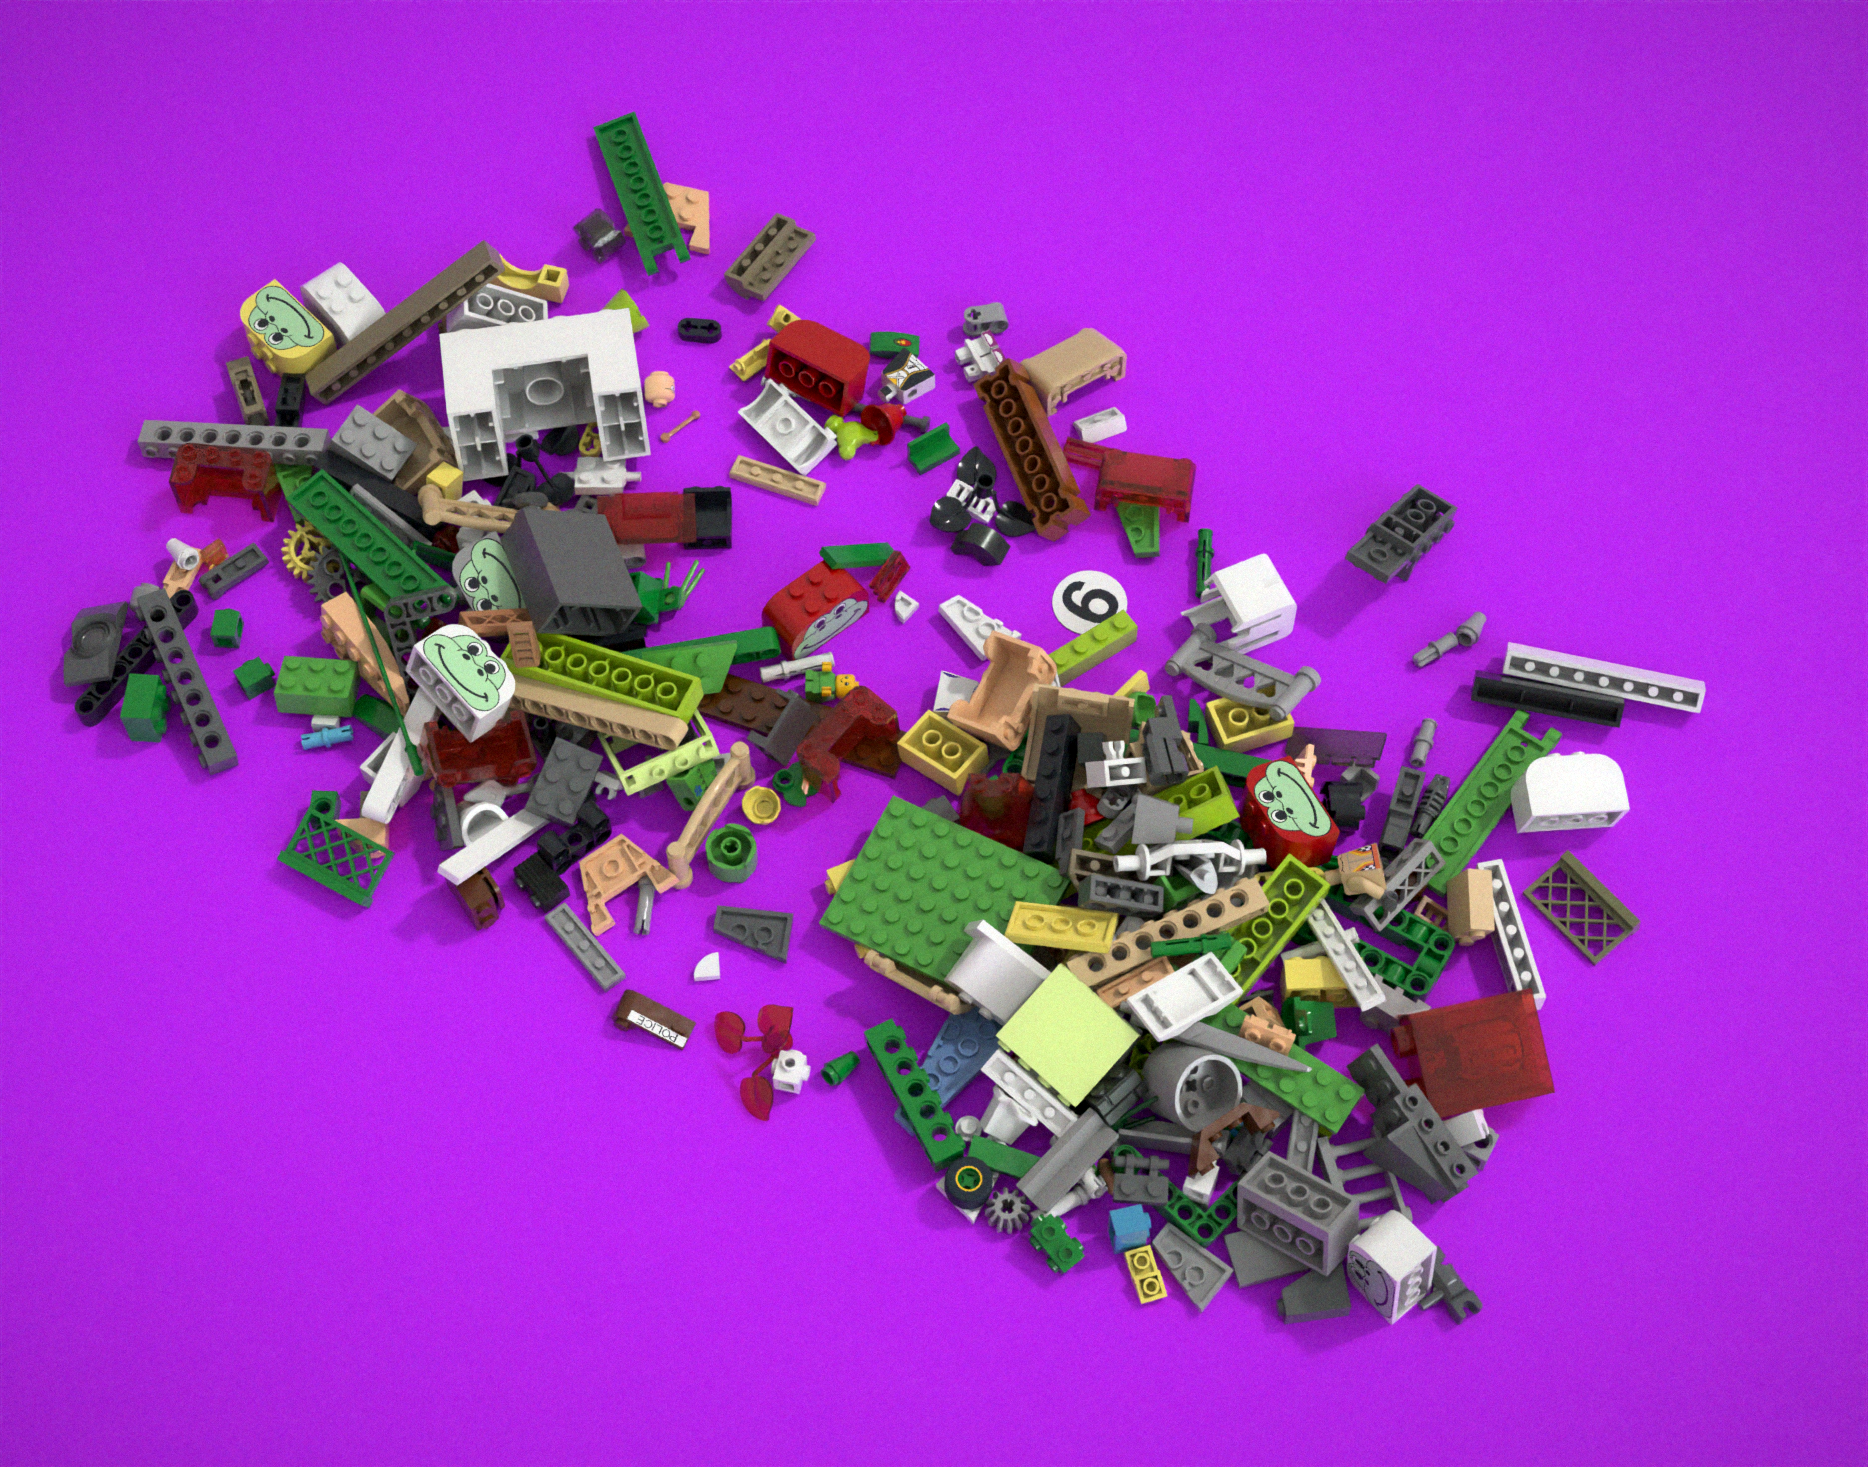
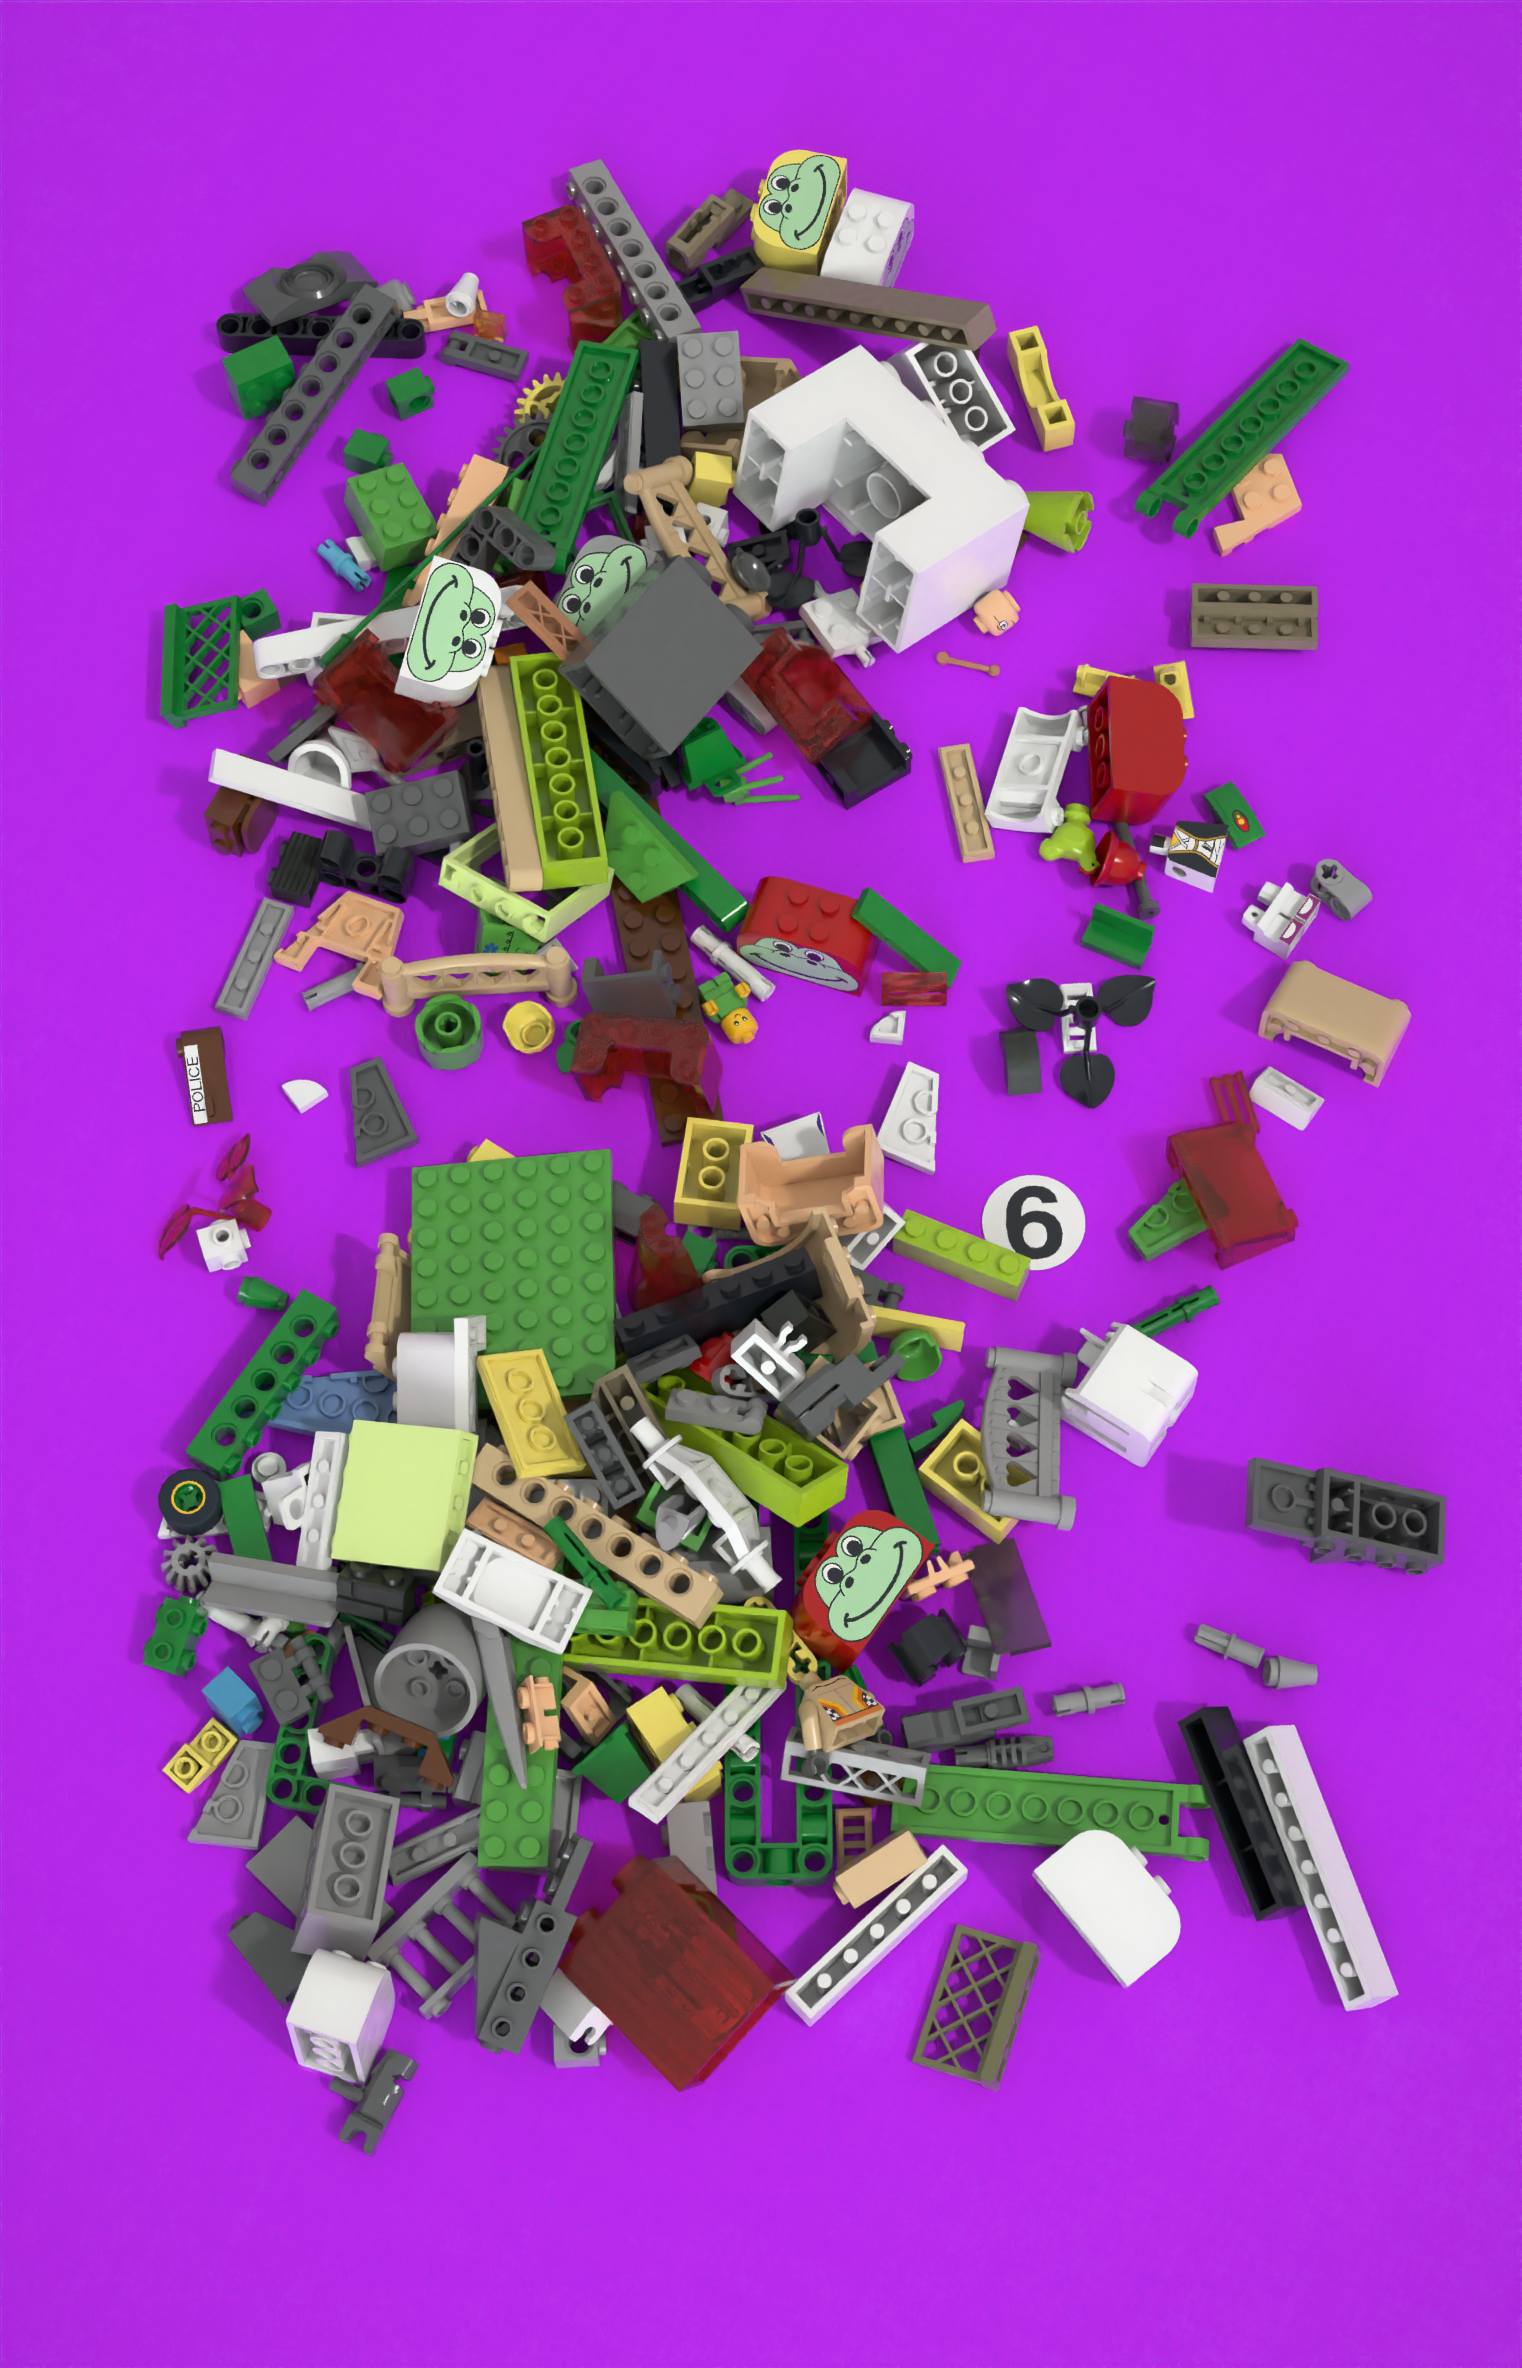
camera: 60 degrees right, 5 degrees up
(524, 646) = (529, 665): medium nougat slope -> none
(699, 330) = (1102, 610): black beam -> none
(1031, 450) = (1183, 1038): dark orange brick -> none
(1158, 821) = (721, 1437): light grey torso -> none

